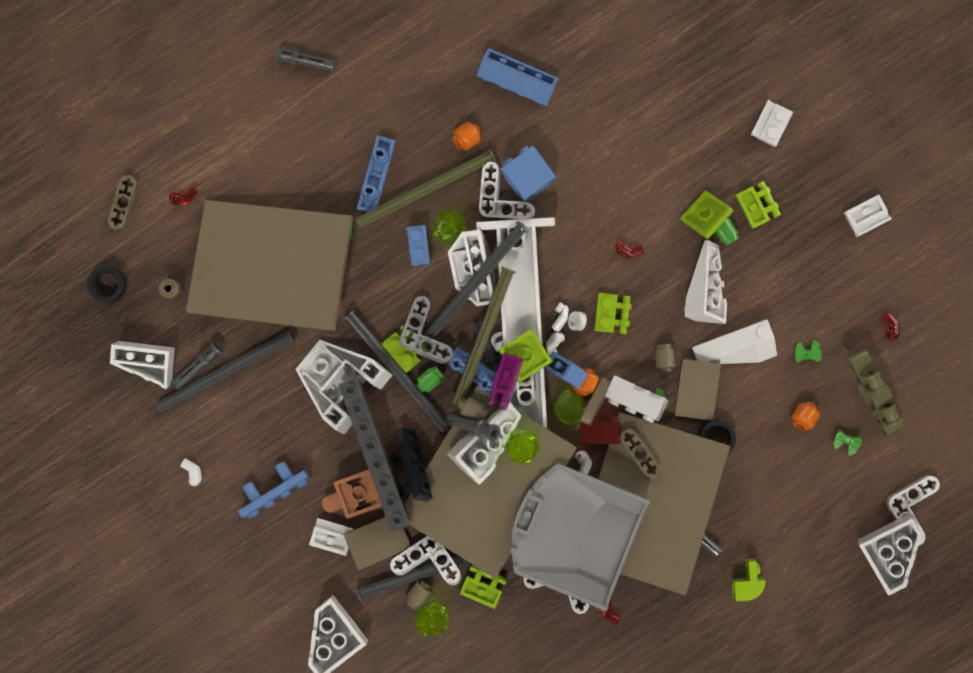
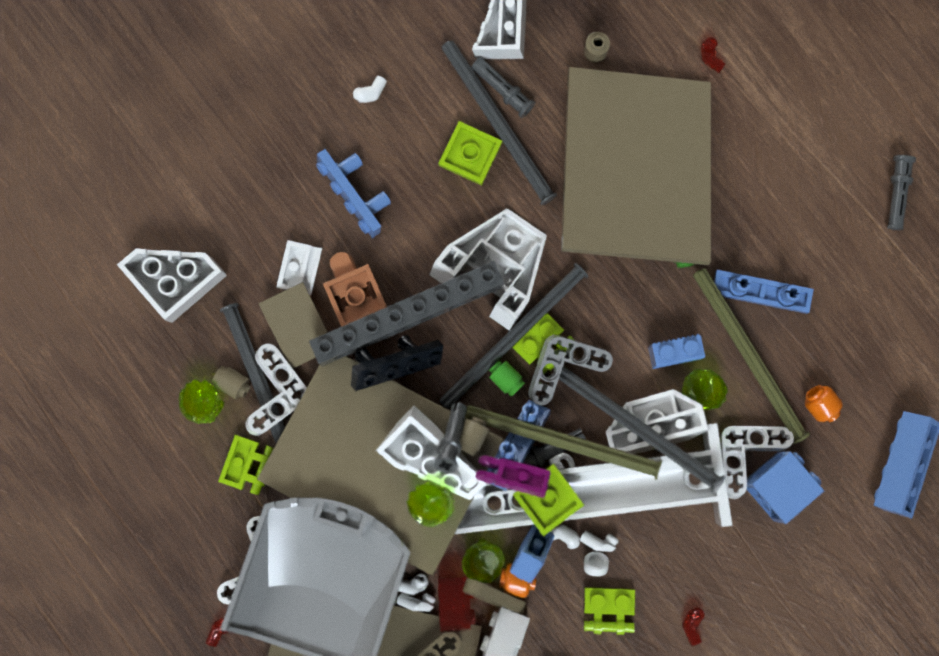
camera: 90 degrees right, 5 degrees down
(249, 395) = (470, 153): none -> lime plate
(599, 460) = (414, 604): none -> white arm

